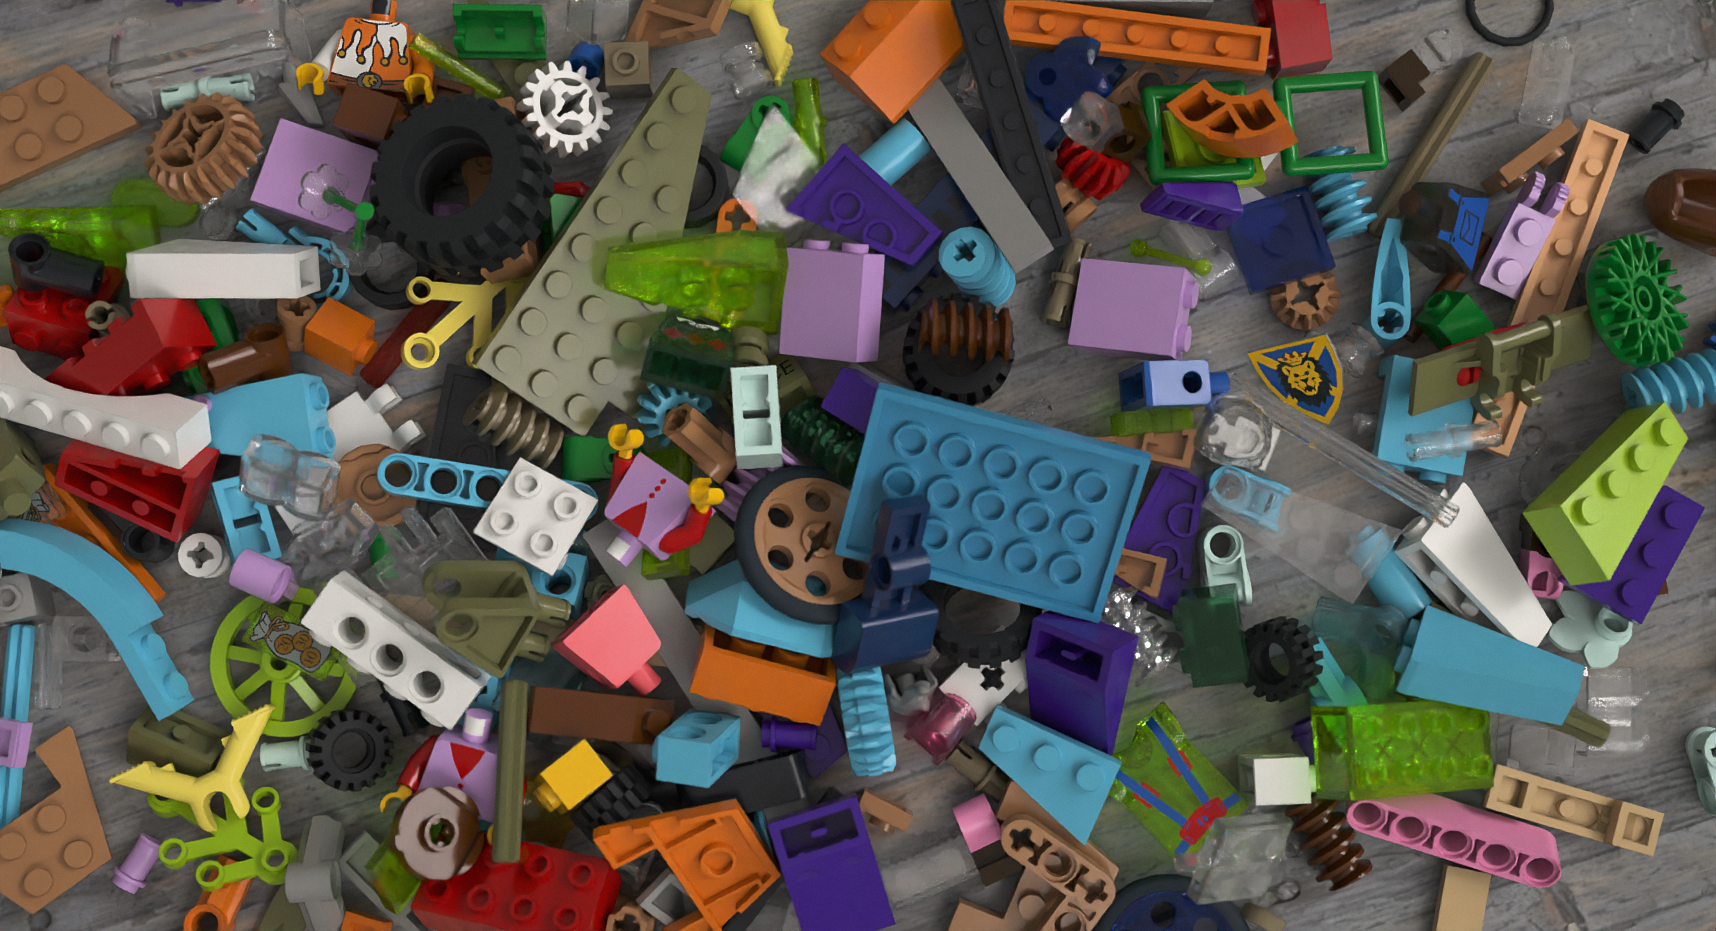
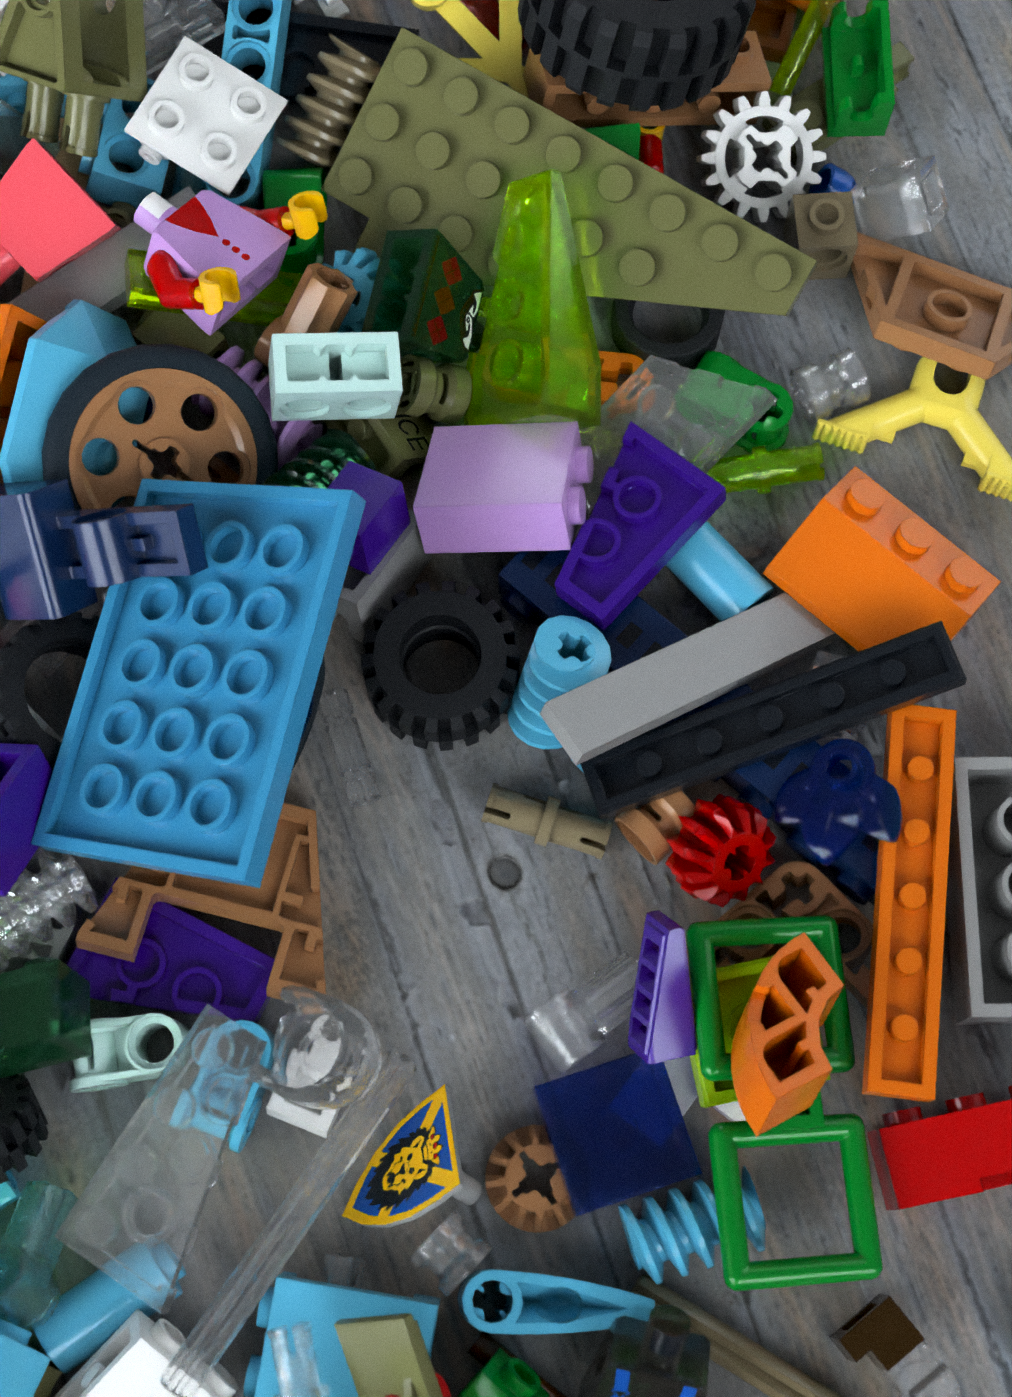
camera: 90 degrees right, 10 degrees down
(966, 330) = (454, 649): reddish brown piece -> none
(1103, 124) = (770, 855): clear leg -> none
(1133, 310) = (500, 908): lavender brick -> none
(1141, 248) = (600, 932): clear neon green hinge -> none
(1158, 421) = (340, 943): clear neon green beam -> none
(1170, 385) = (390, 940): blue torso -> none

